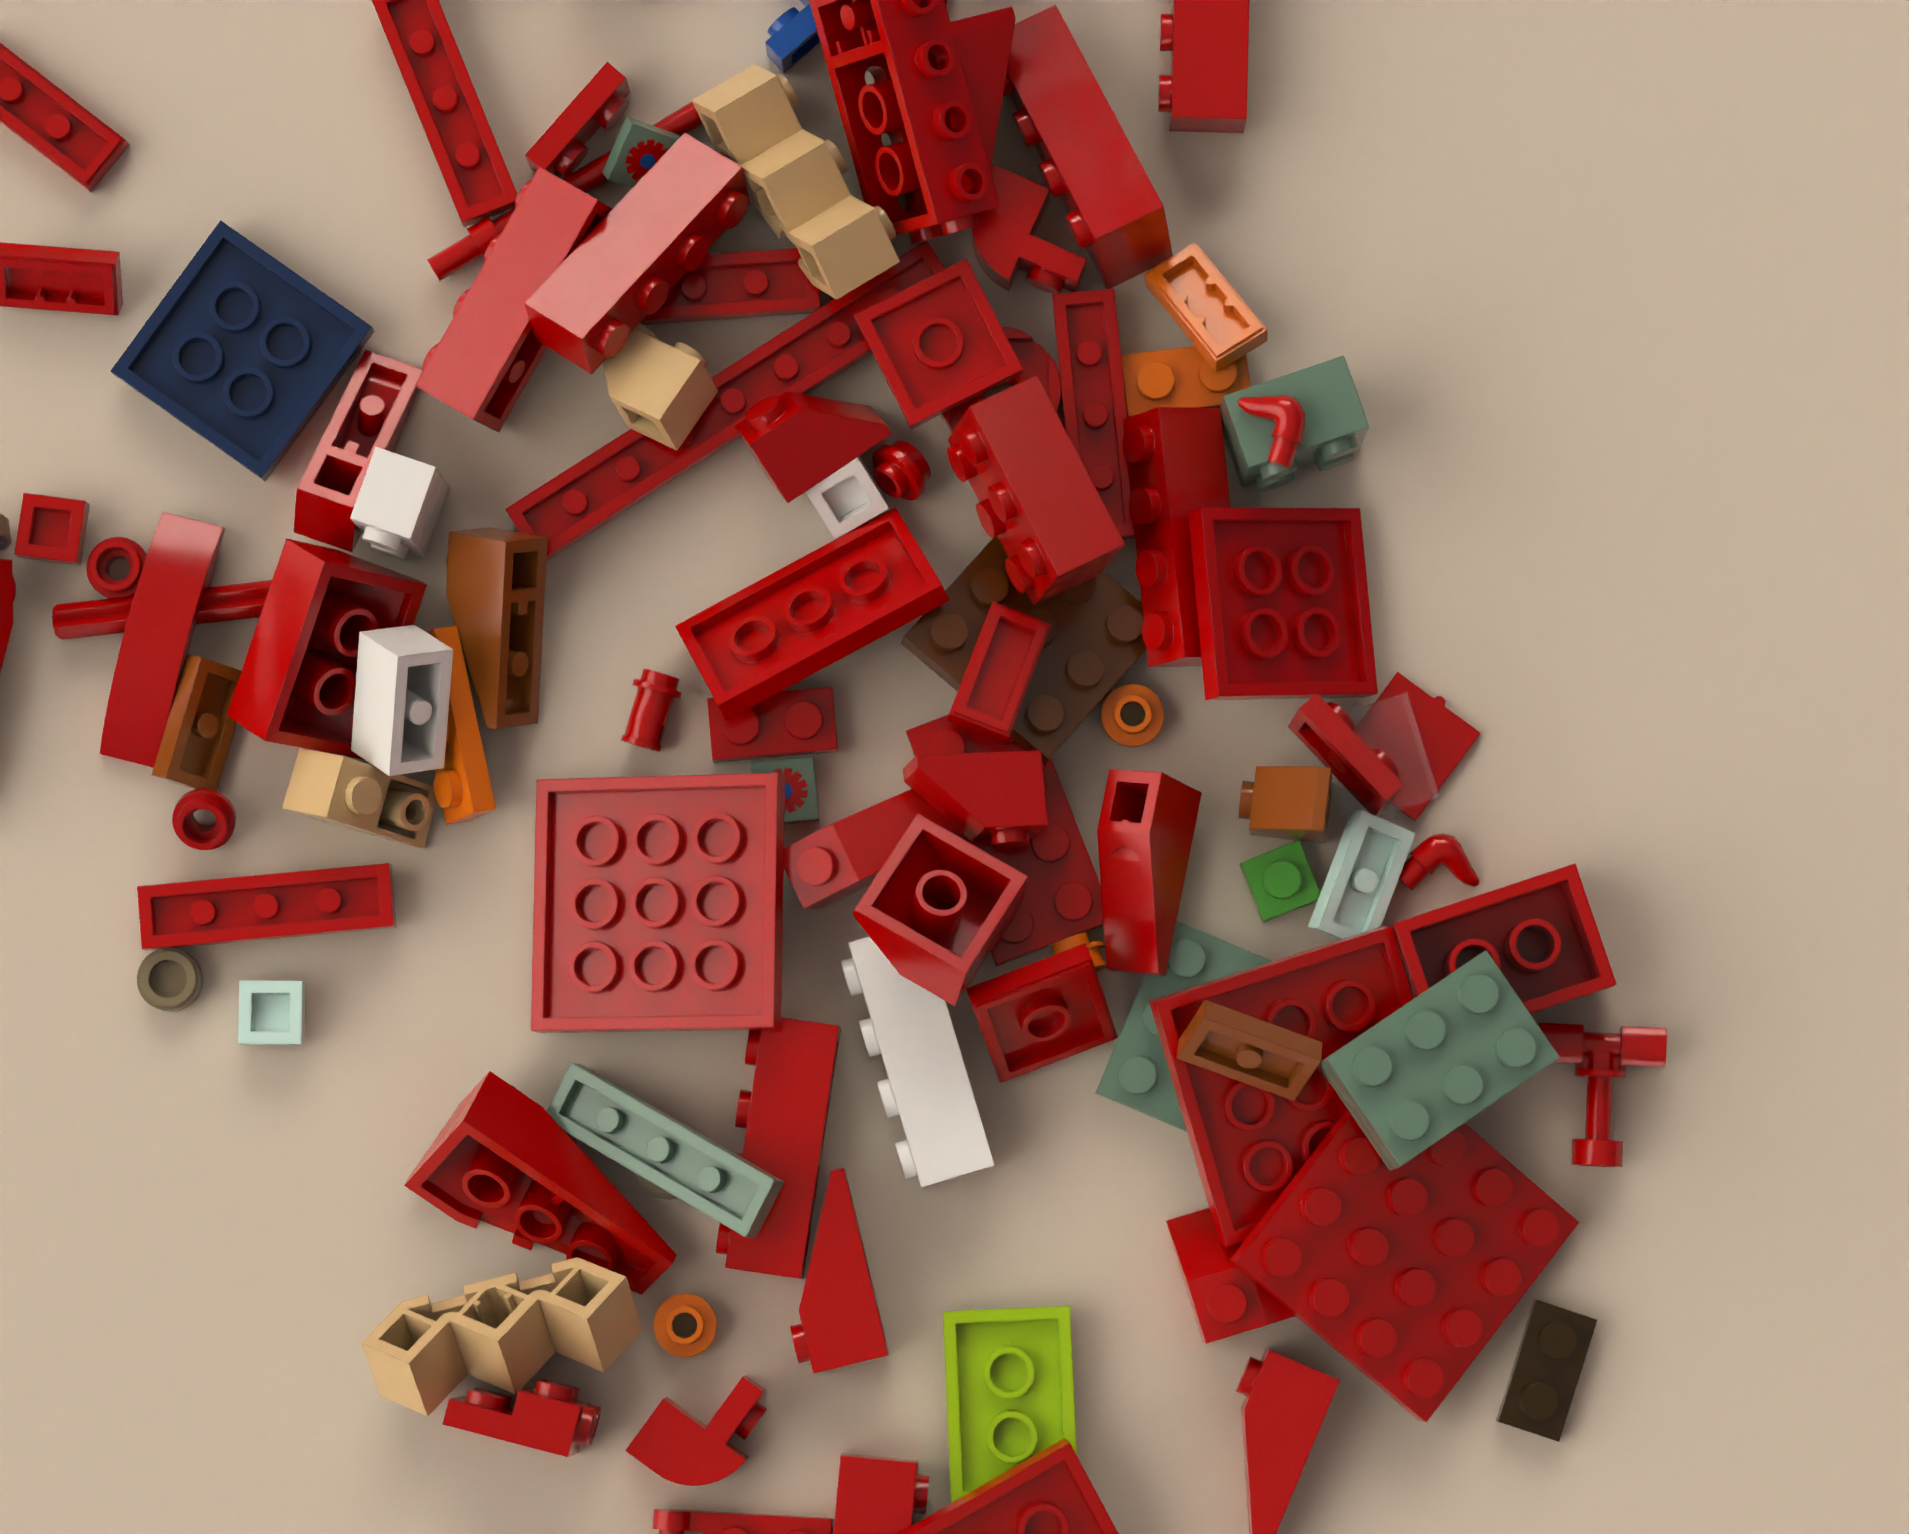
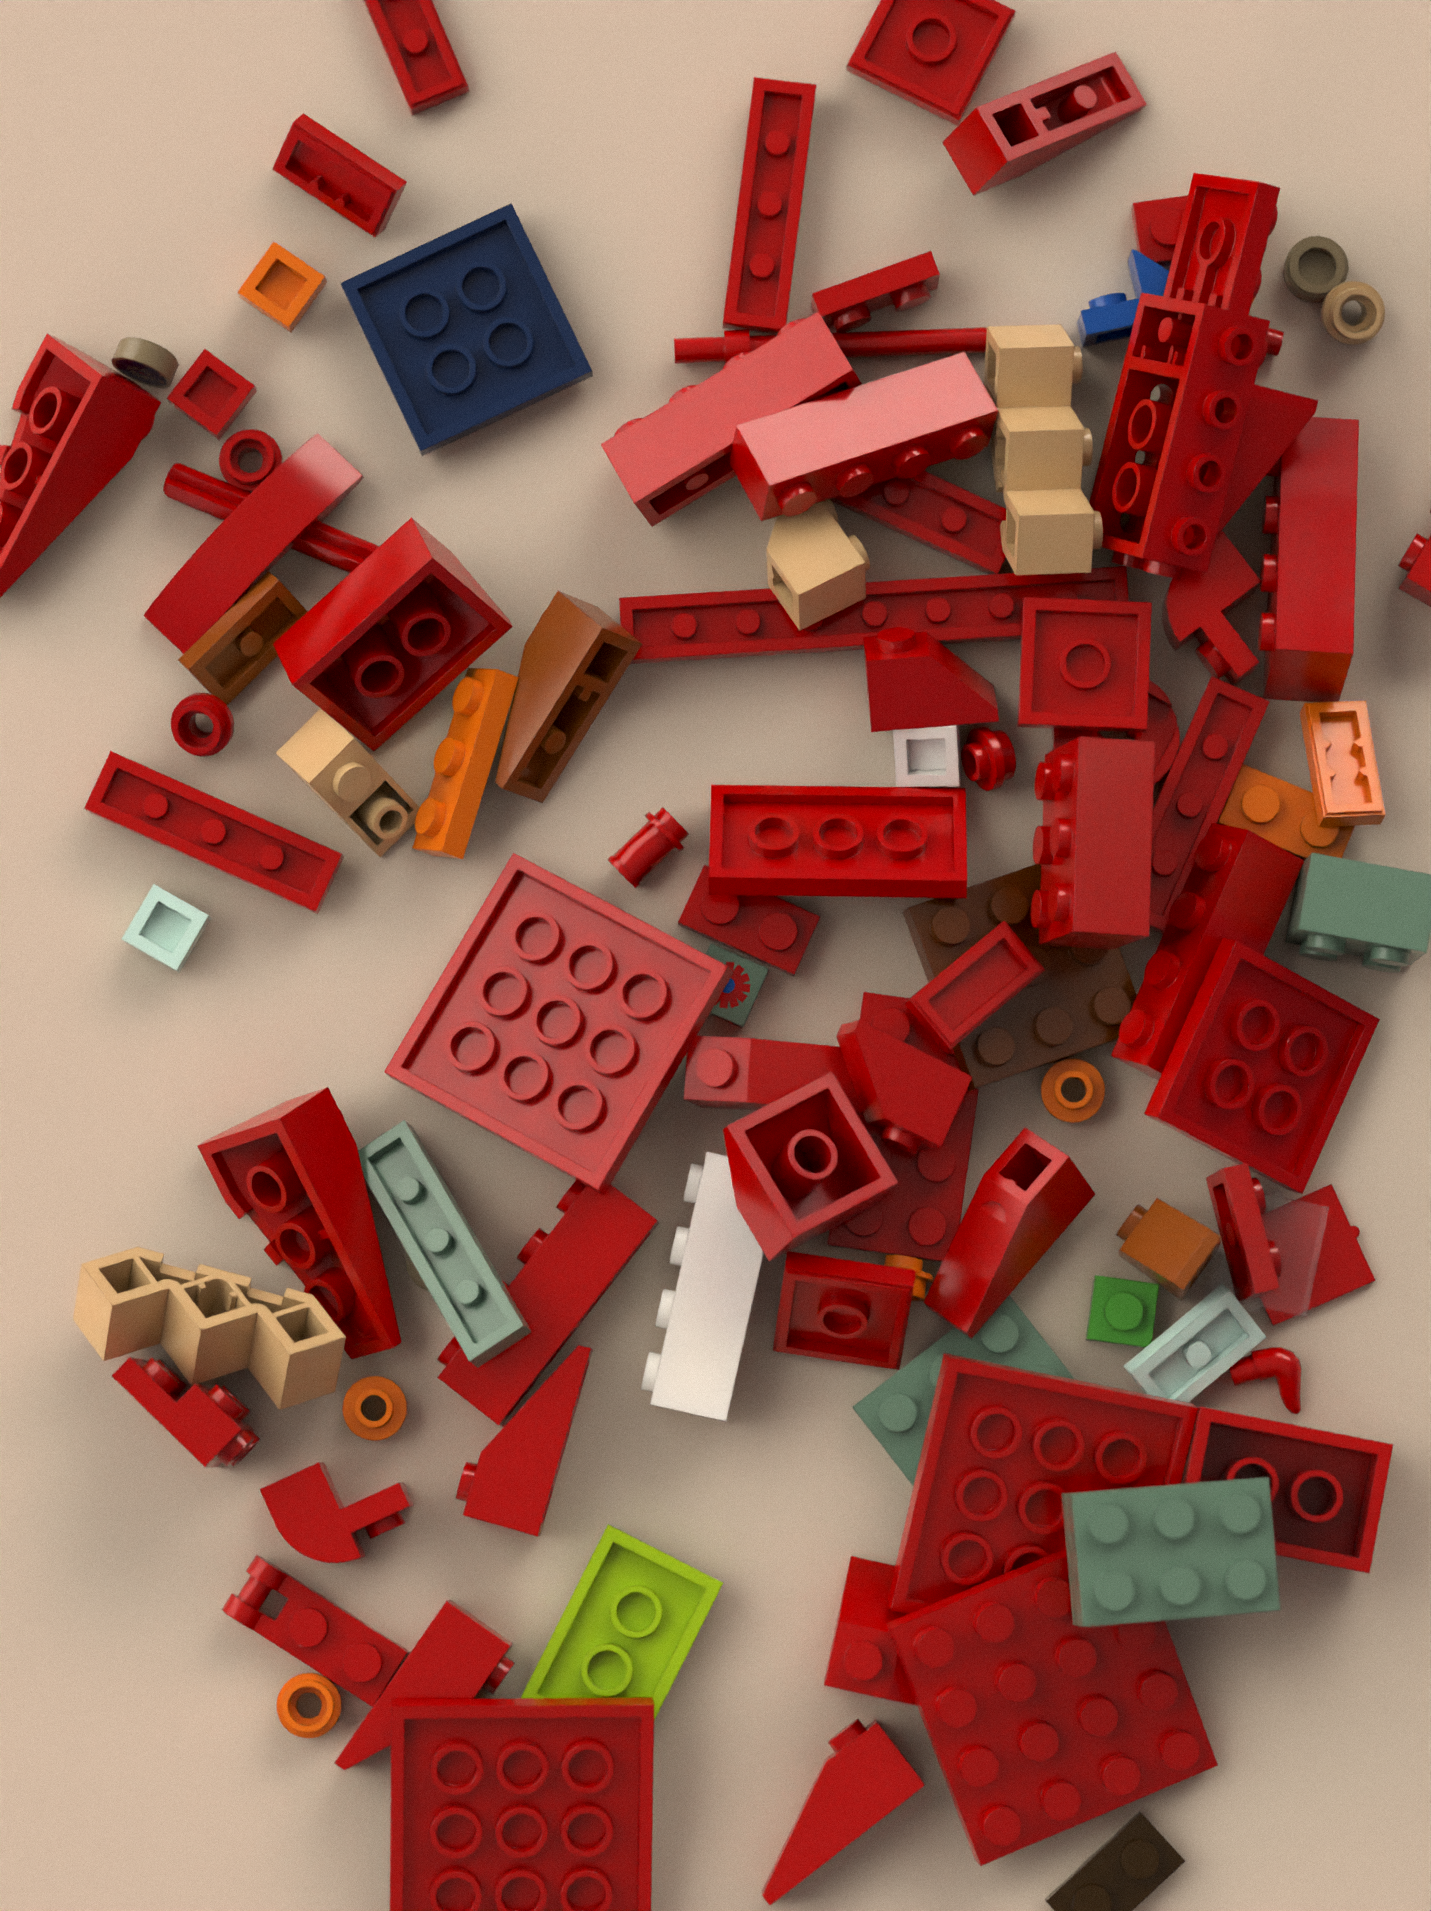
camera: 30 degrees right, 0 degrees up
(61, 402) = (282, 287): none -> orange plate
(169, 979) = (93, 848): dark tan tile -> none
(367, 417) = (516, 474): red slope -> none
(399, 504) = (527, 542): white brick -> none
(401, 700) = (433, 716): white brick -> none
(636, 151) = (912, 345): sand green tile -> none
(1249, 1050) = (1008, 1447): dark orange plate -> none
(1288, 427) = (1357, 906): red animal -> none
(1600, 1060) = (1318, 1631): red bar -> none

